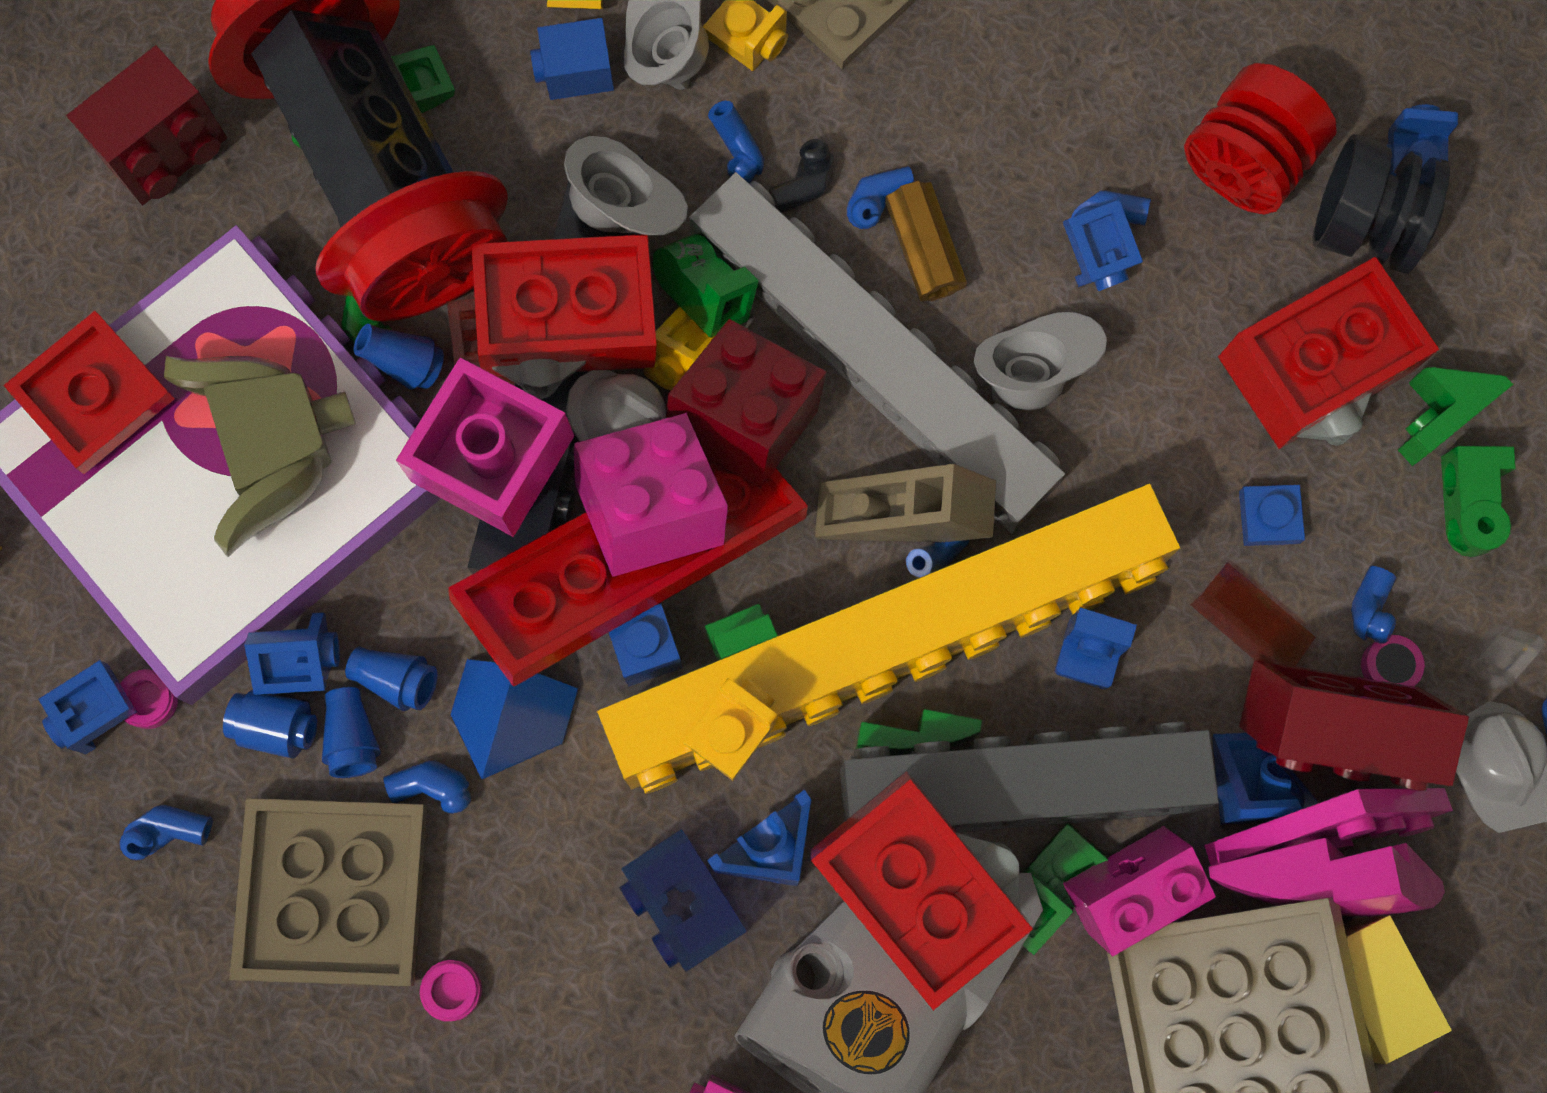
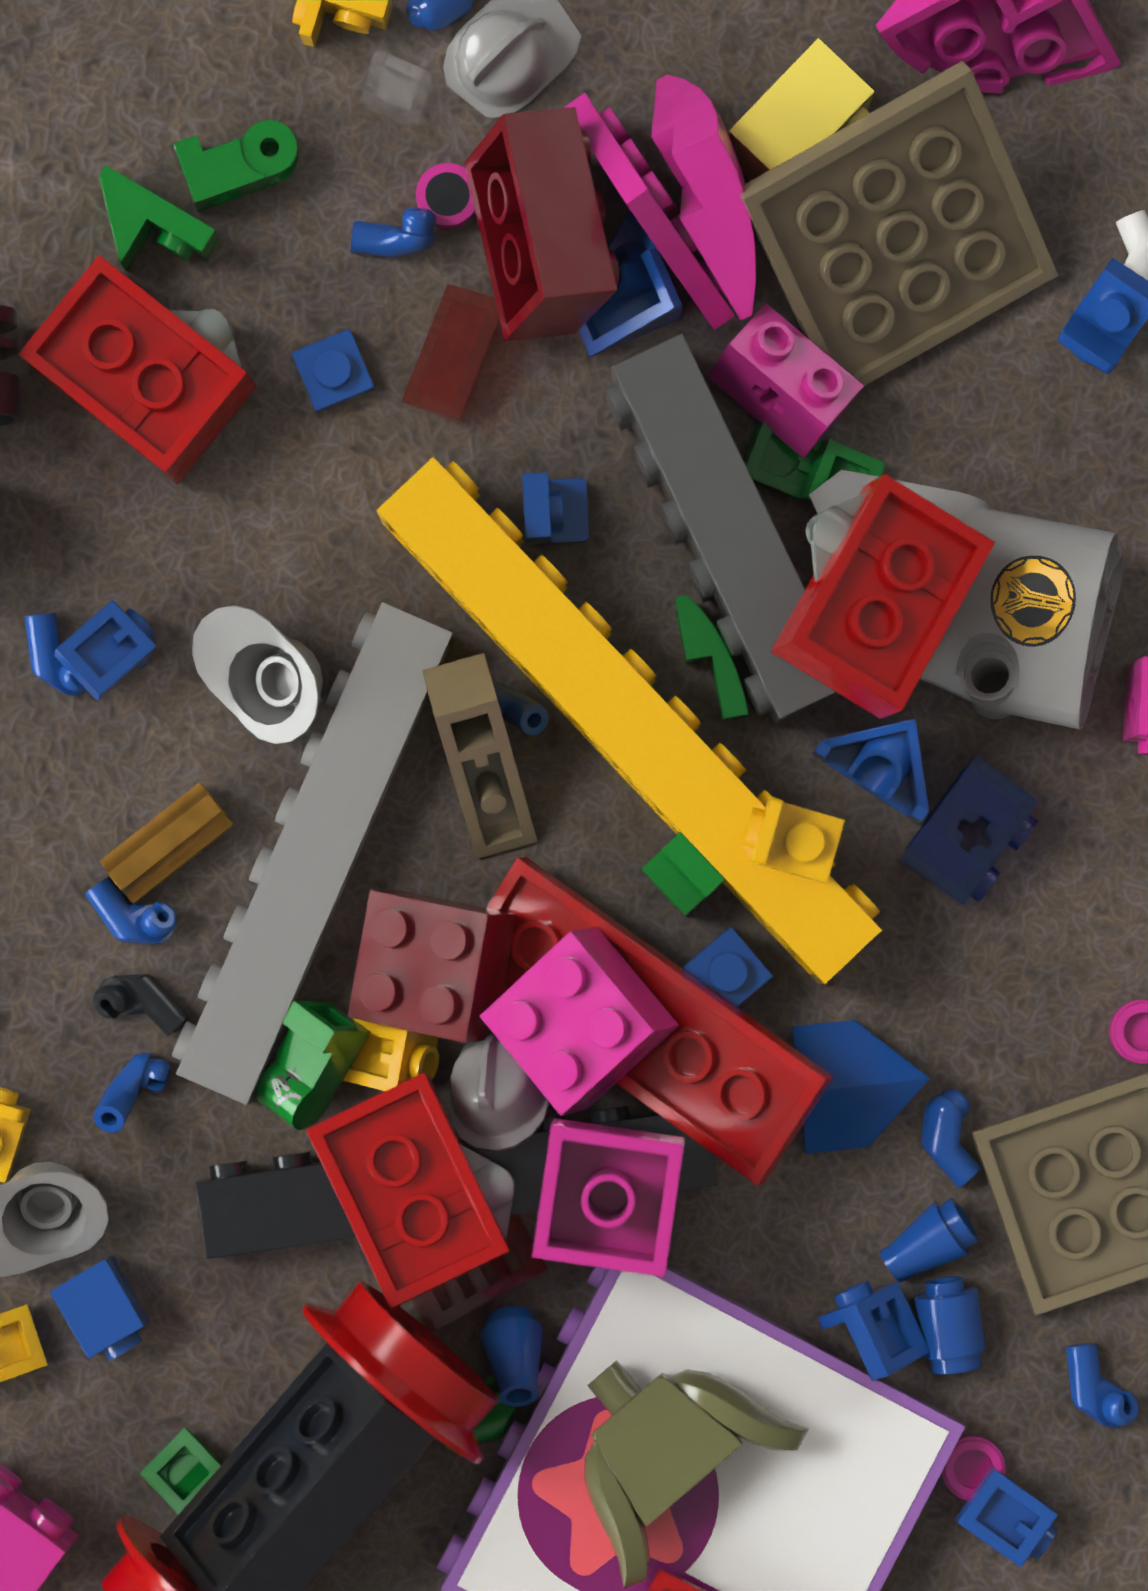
camera: 110 degrees left, 10 degrees up
(395, 677) = (854, 1219): blue cone -> none
(619, 191) = (258, 1178): light grey piece -> none

